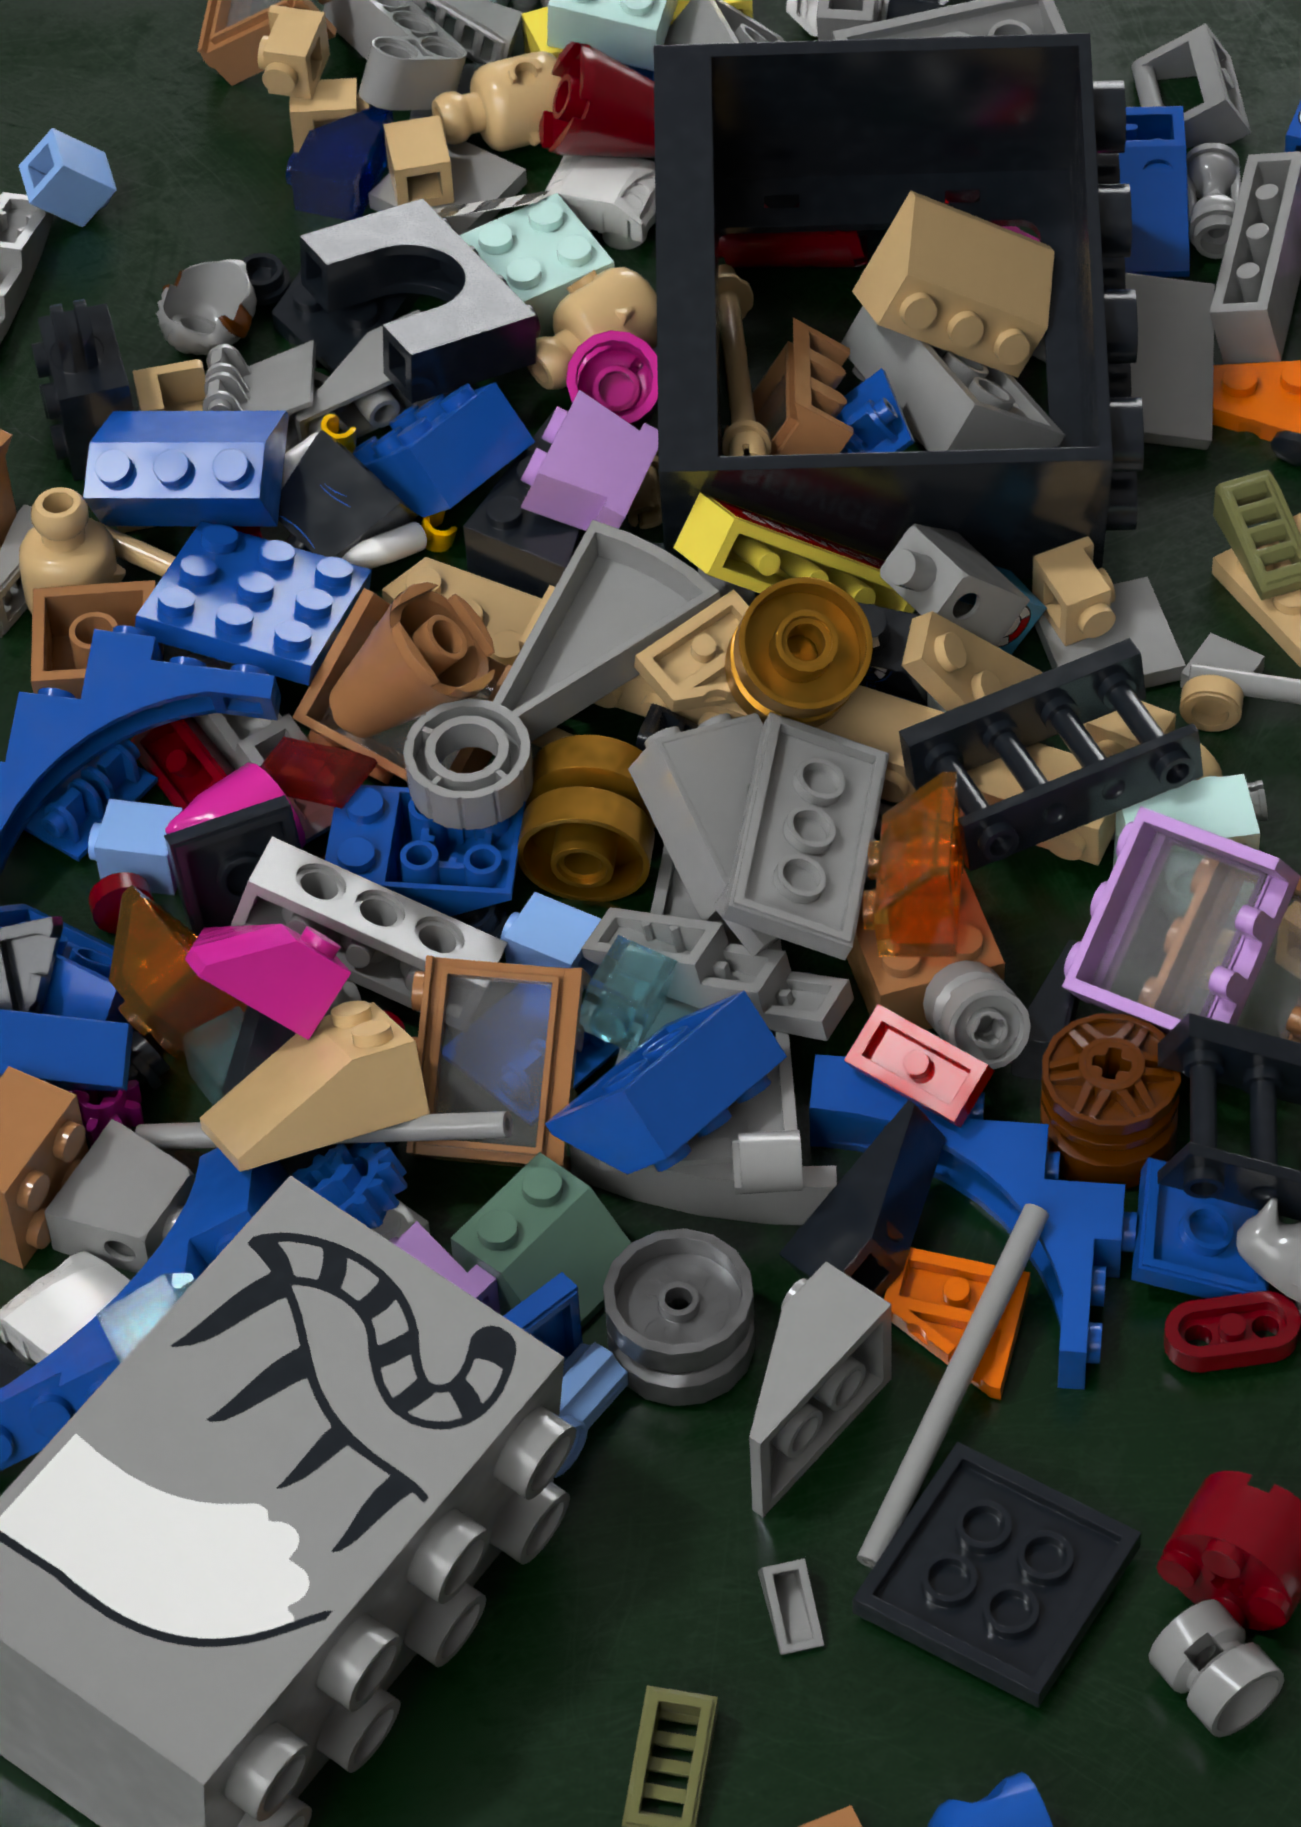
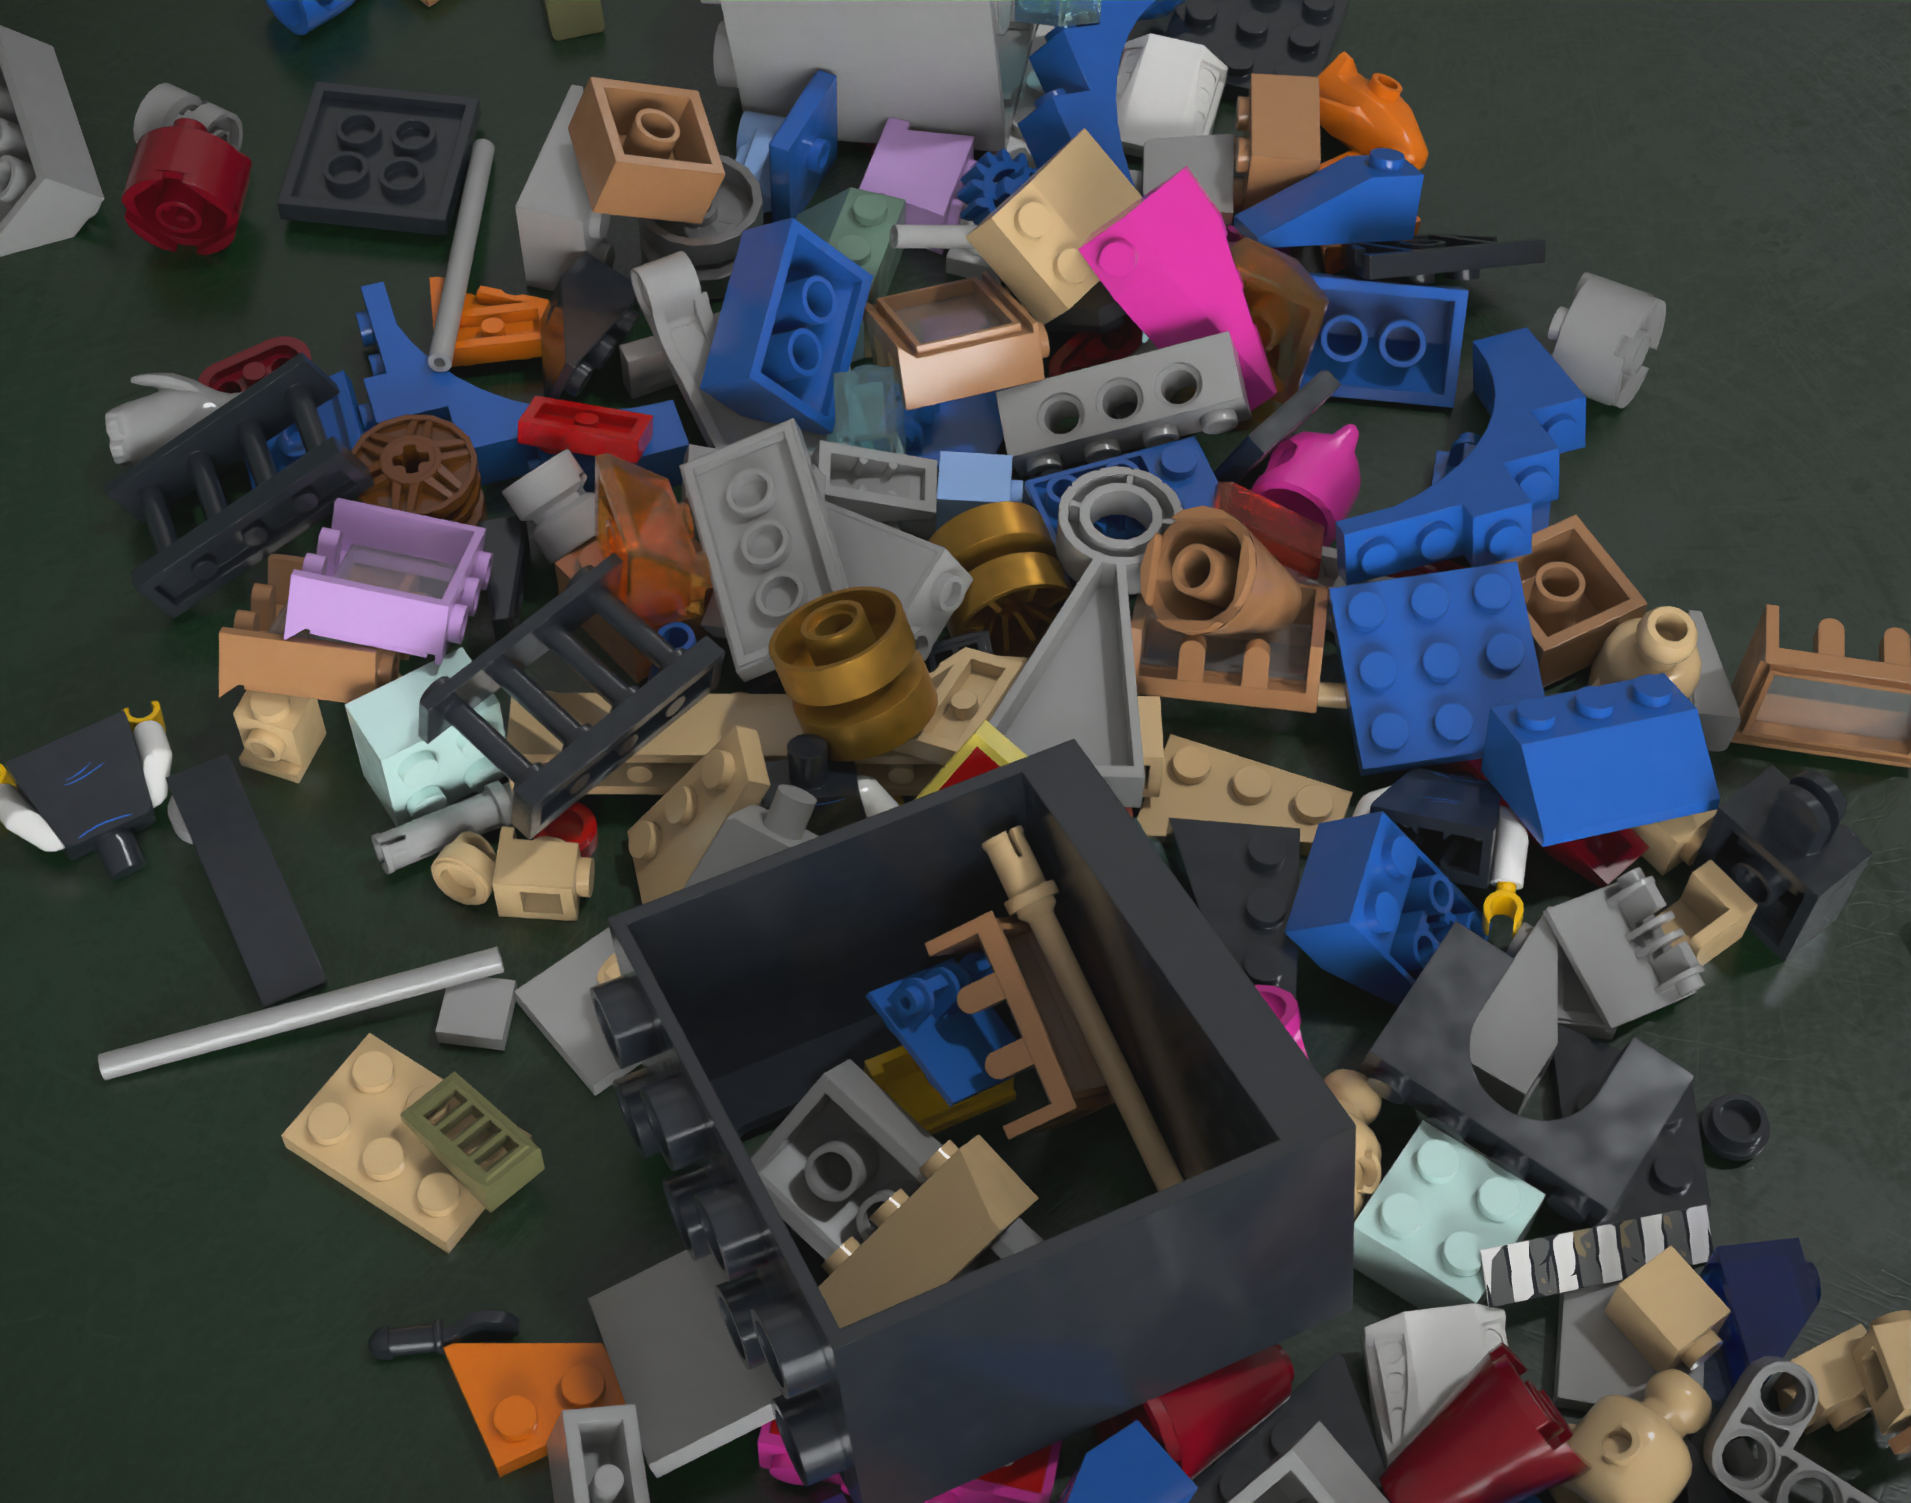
camera: 150 degrees right, 5 degrees up
(107, 896) = (1368, 412): dark red tile -> none
(135, 843) = (1392, 462): light blue brick -> none
(207, 306) = (1751, 1034): light grey hair -> none
(590, 467) = (1217, 871): lavender hips -> none
(726, 1280) = (645, 151): none -> medium nougat brick
(791, 1606) = (531, 107): light grey piece -> none
(1211, 703) = (469, 938): tan tile -> none

